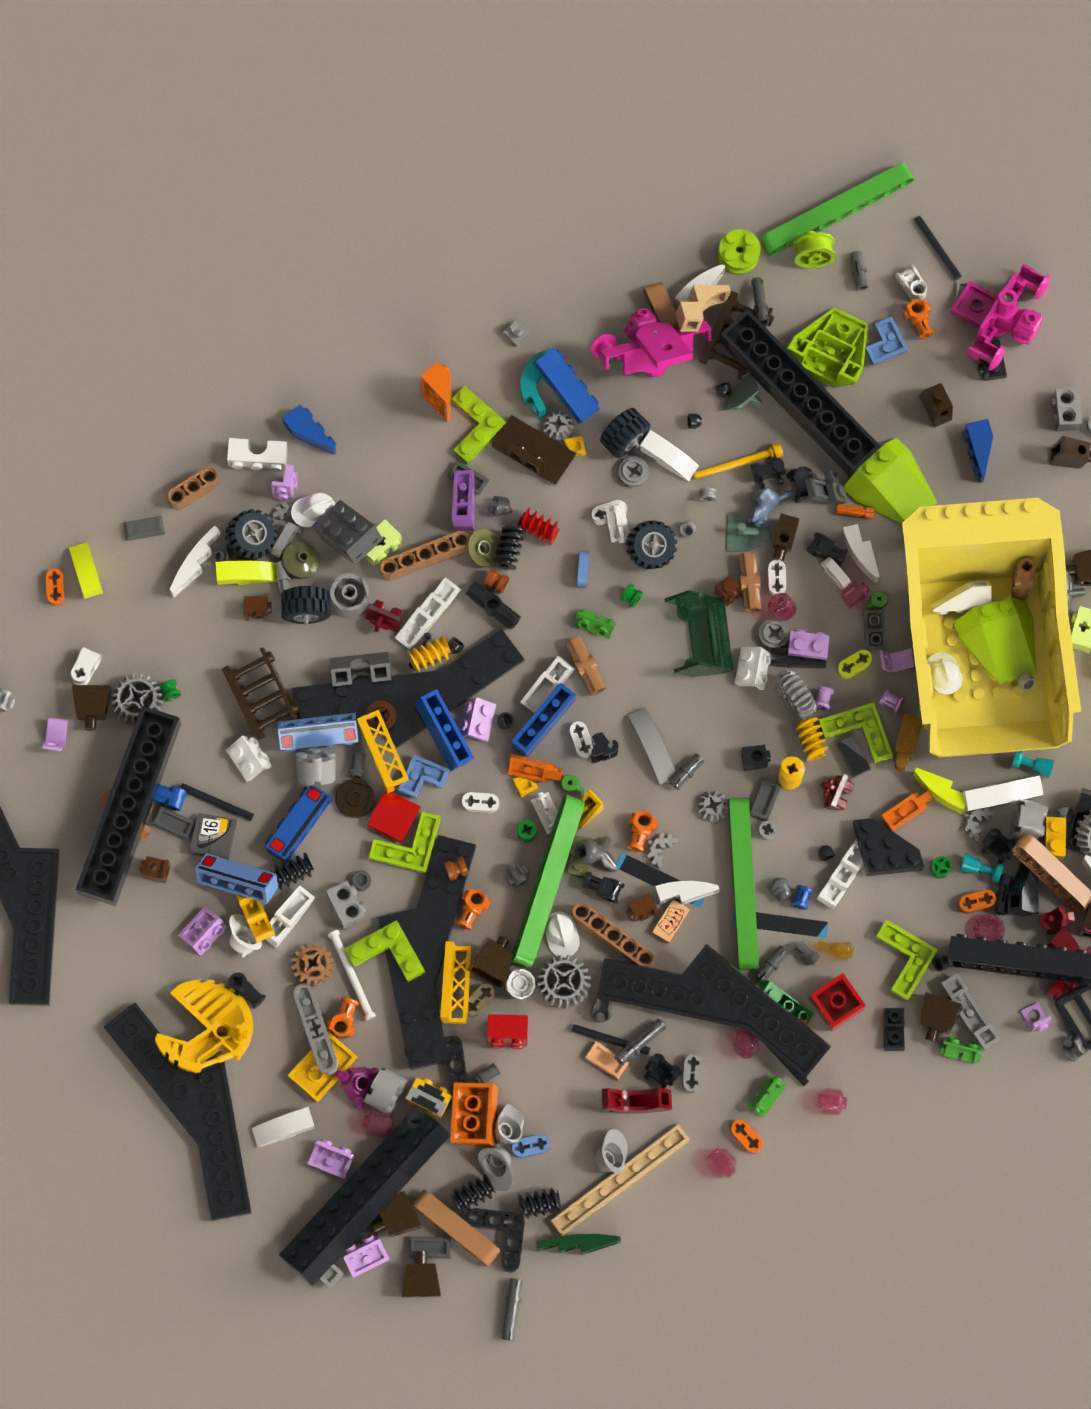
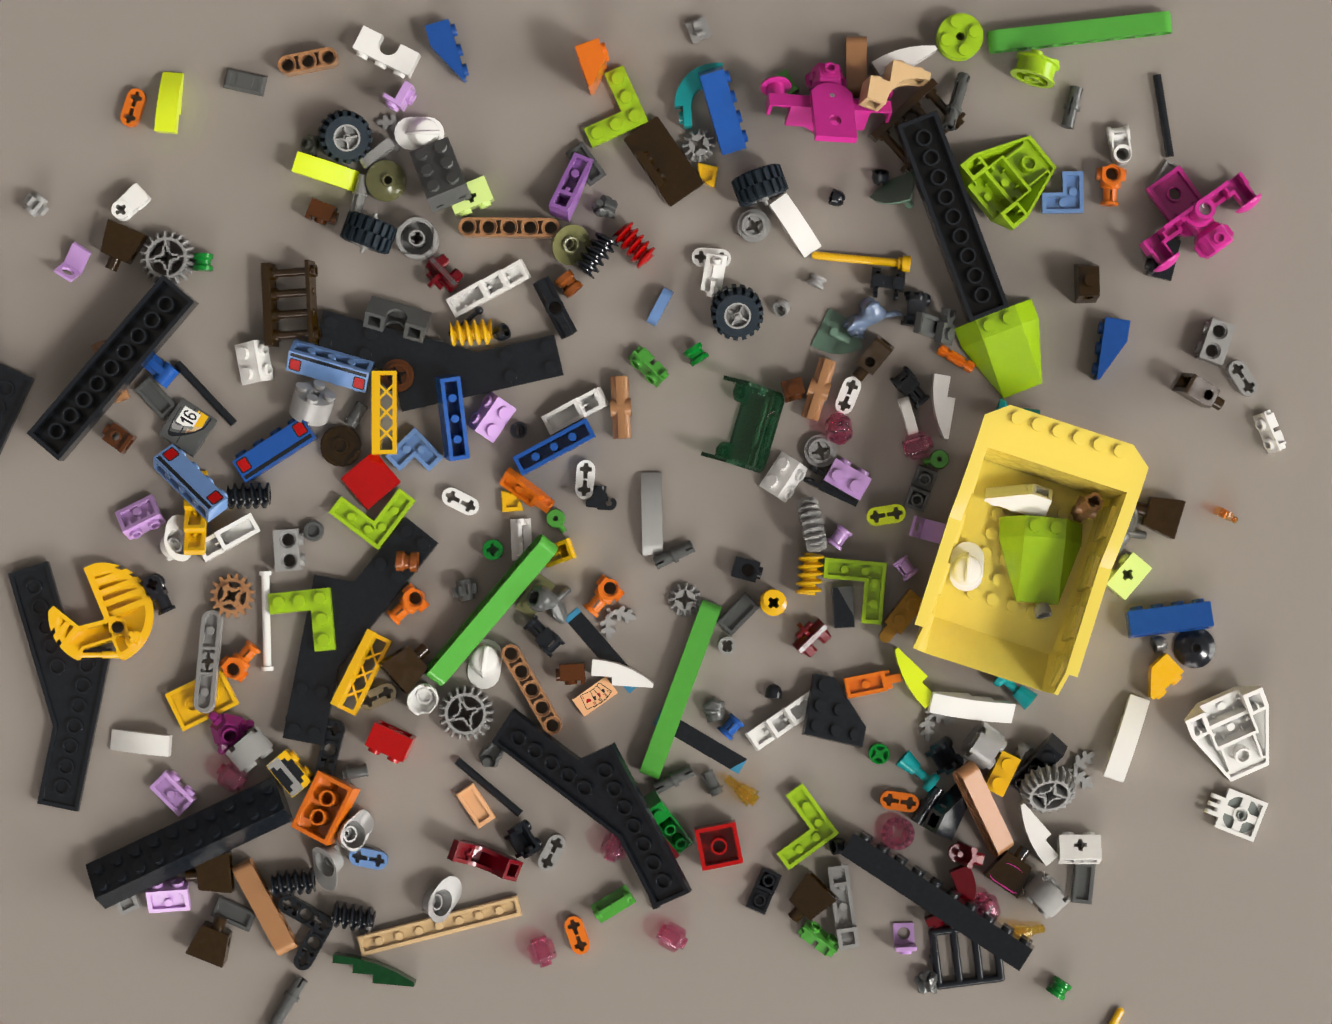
camera: 25 degrees right, 15 degrees up
(191, 566) = (274, 142): white slope -> none
(633, 1047) = (494, 810): dark grey pin -> none

